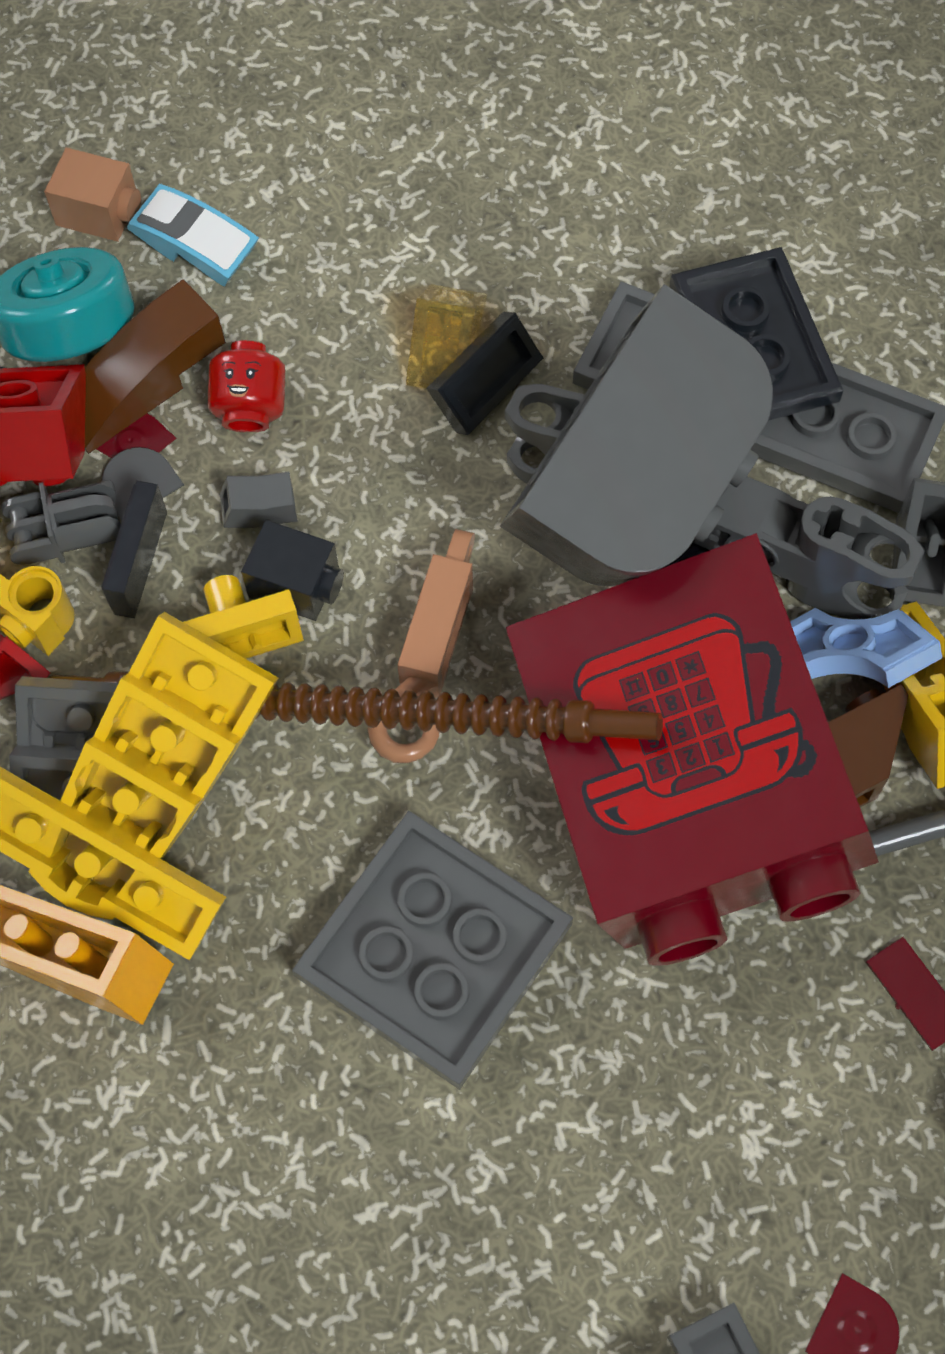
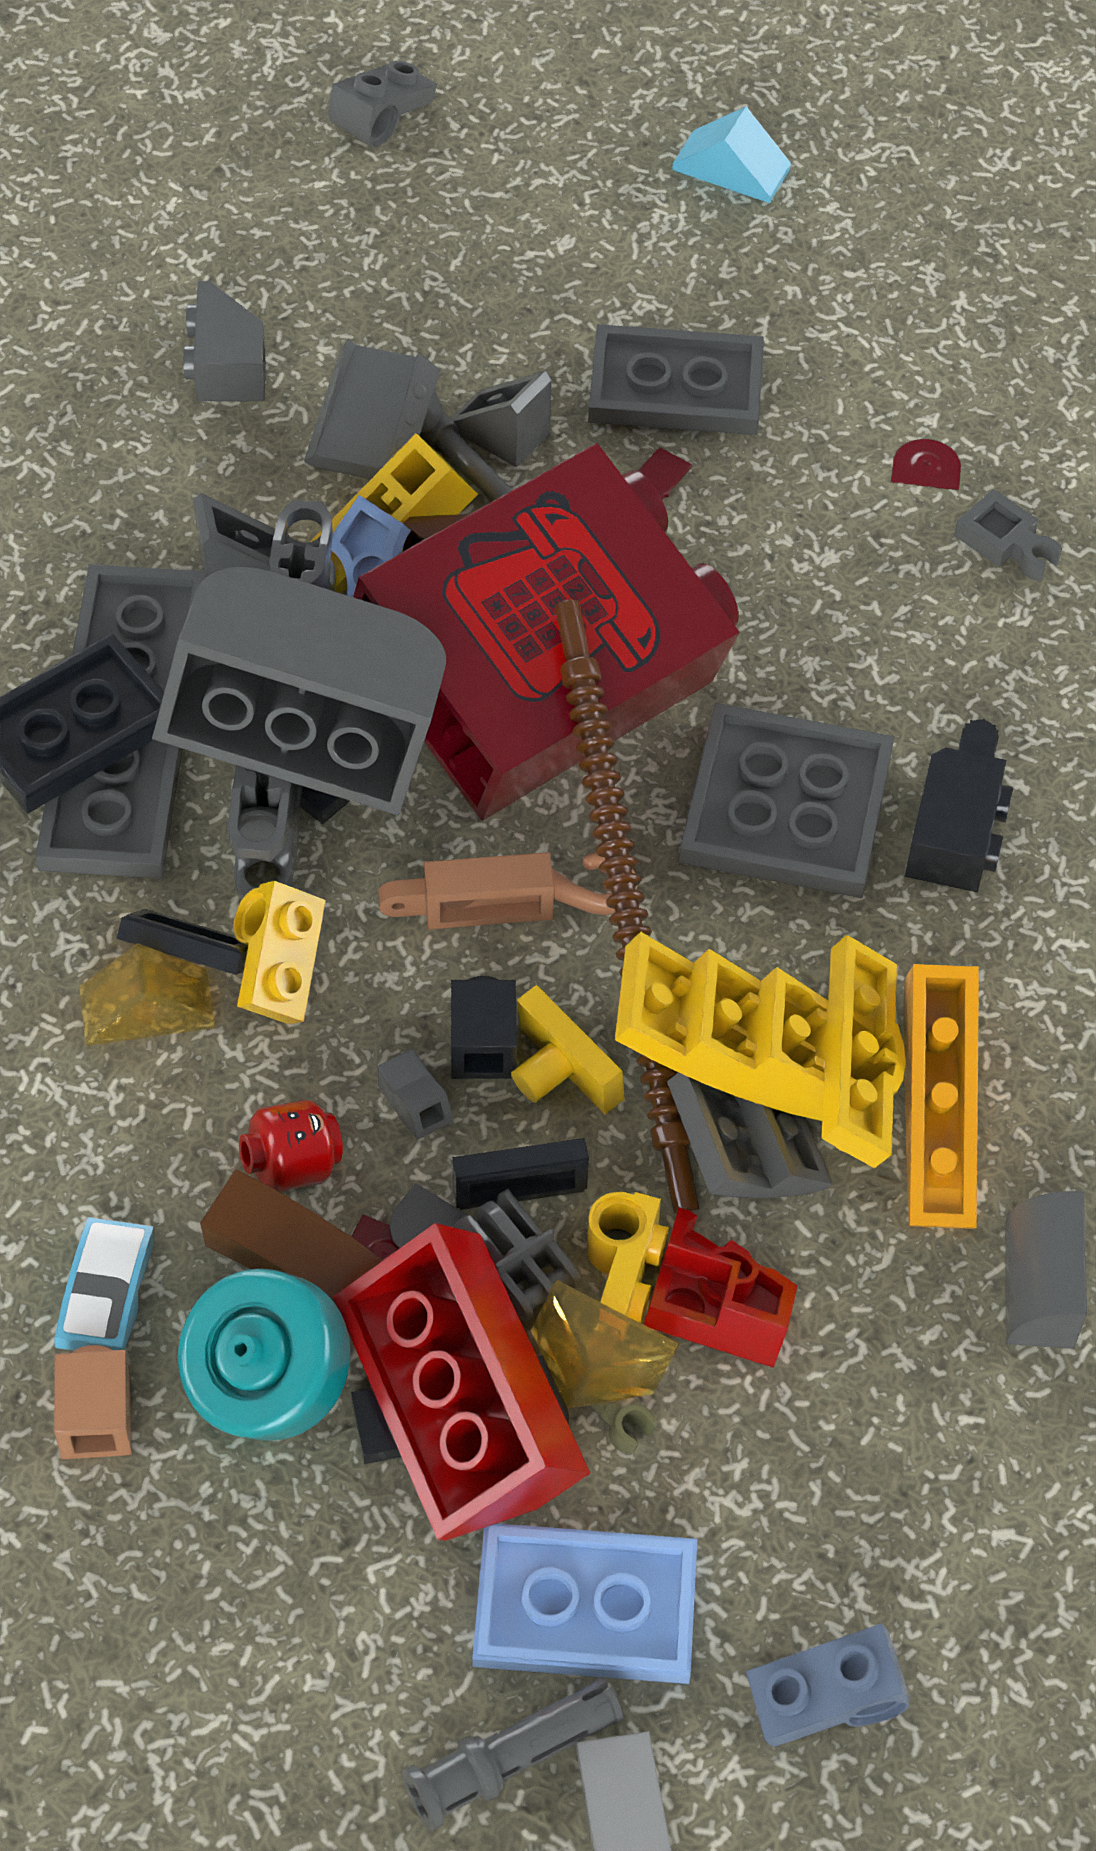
camera: 115 degrees left, 10 degrees down
(343, 1113) = (958, 812): none -> black hinge
(437, 431) = (282, 943): none -> yellow plate

